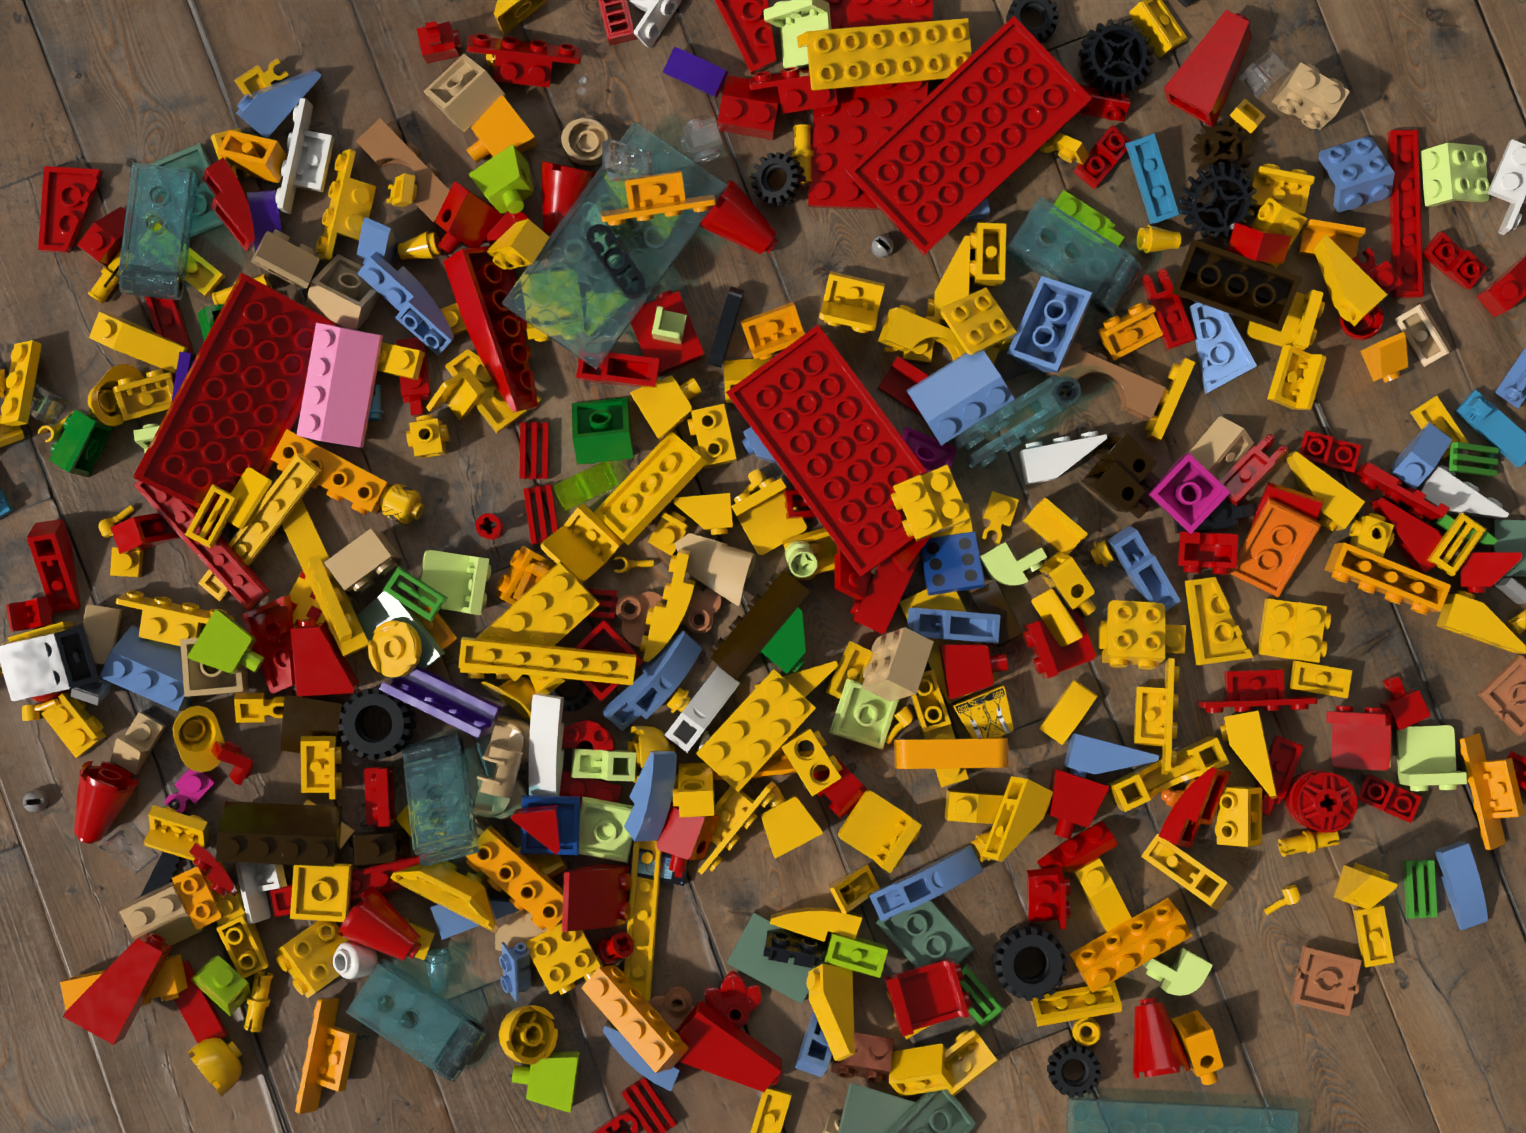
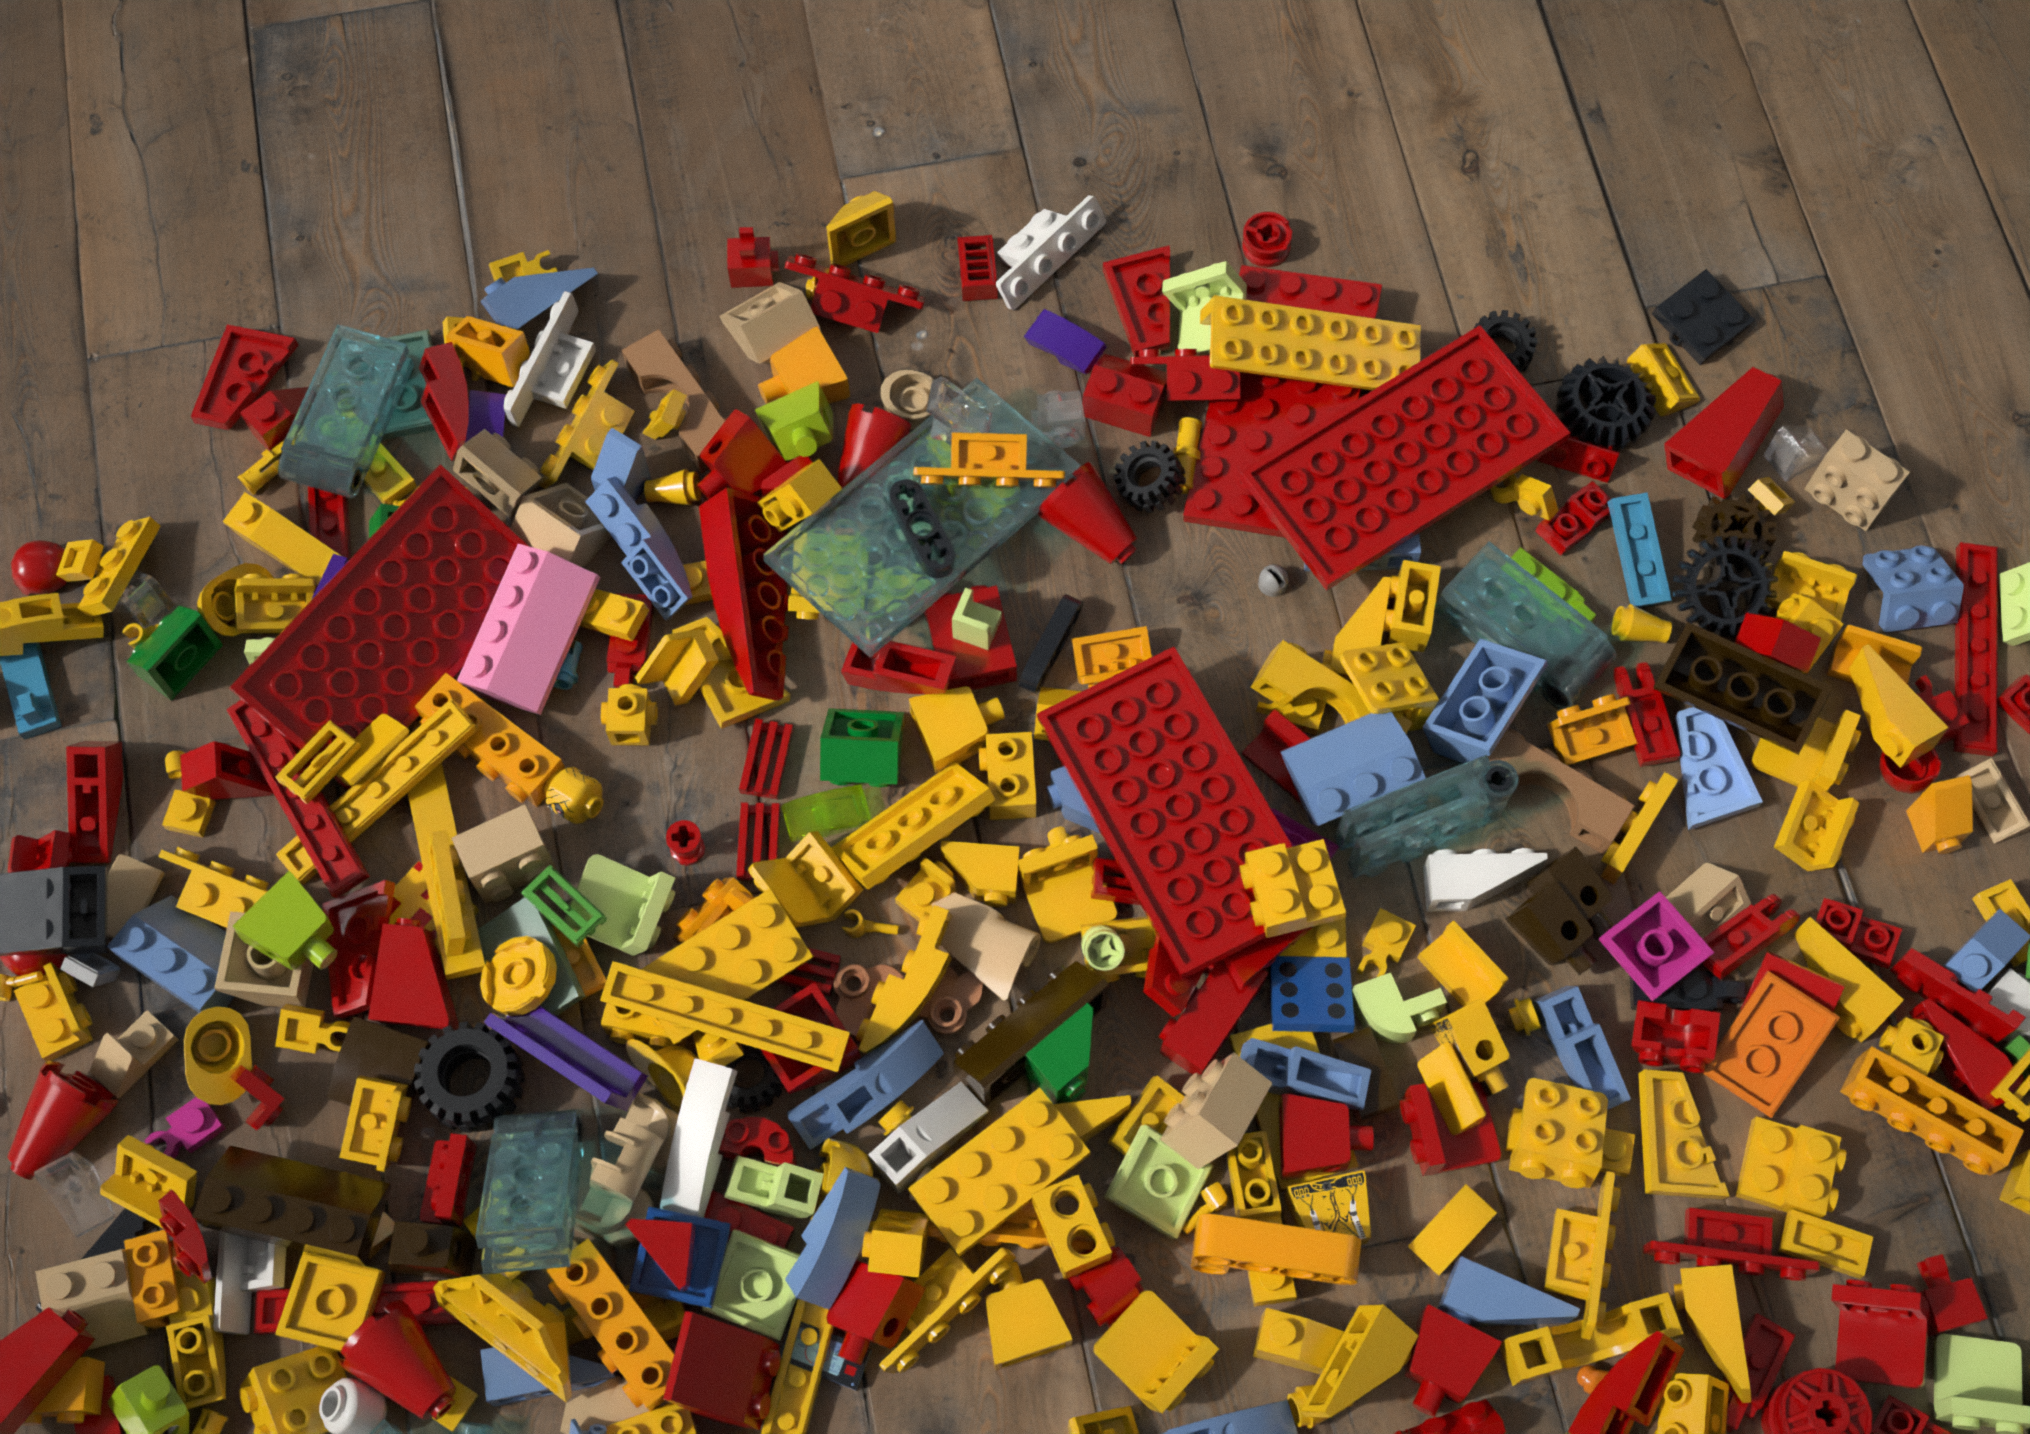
camera: 10 degrees right, 20 degrees down
(851, 302) = (1225, 633): yellow bracket -> none

